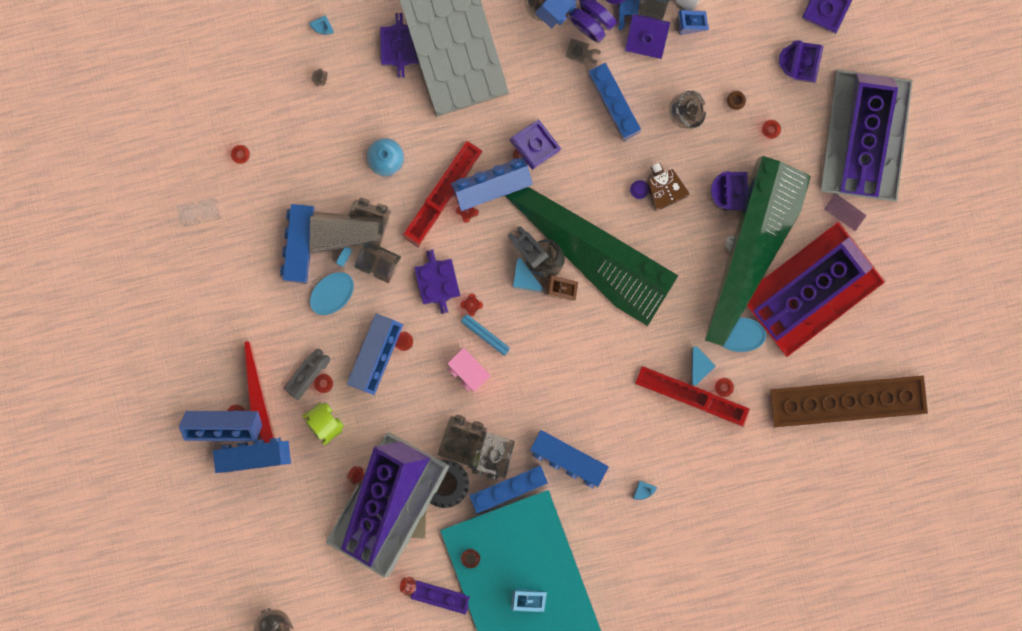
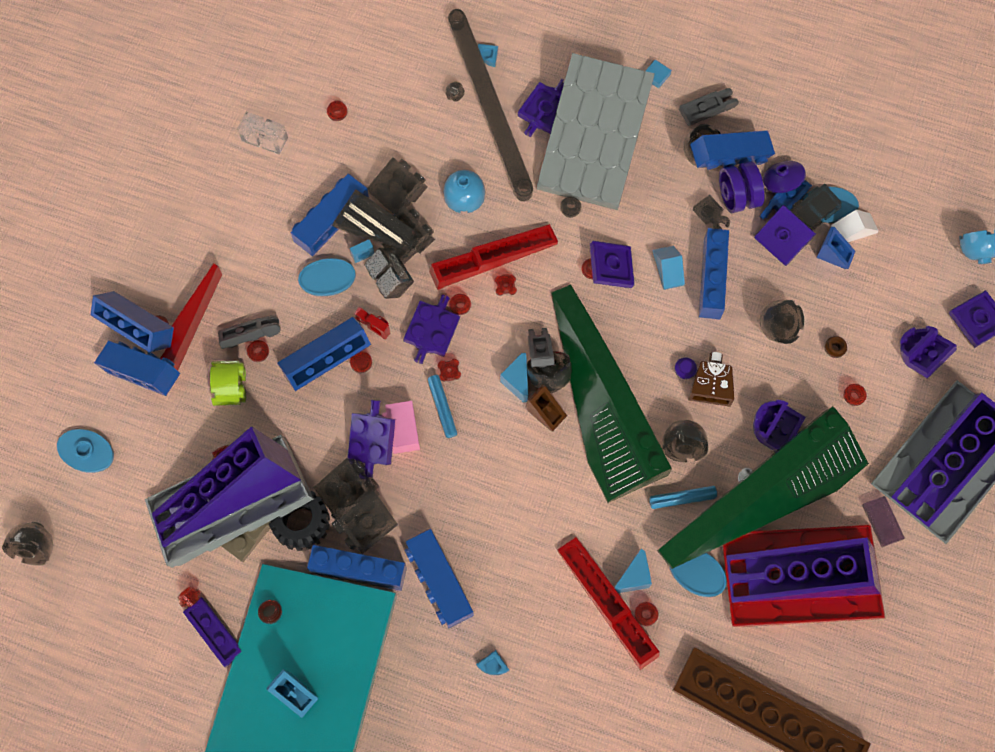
camera: 30 degrees right, 15 degrees down
(255, 537) = (85, 451): none -> dark azure piece
(333, 187) = (397, 185): none -> clear smoke plate
(353, 69) = (490, 105): none -> clear smoke piece
(396, 306) = (375, 324): none -> red plate
(444, 242) = (460, 298): none -> clear red plate
(454, 393) = (371, 438): none -> dark purple plate
(473, 122) = (570, 212): none -> clear smoke plate
(492, 183) = (546, 270): brick -> none
(577, 116) = (670, 267): none -> dark azure slope
(673, 246) = (685, 440): none -> clear smoke cylinder
(697, 288) = (683, 497): none -> dark azure axle

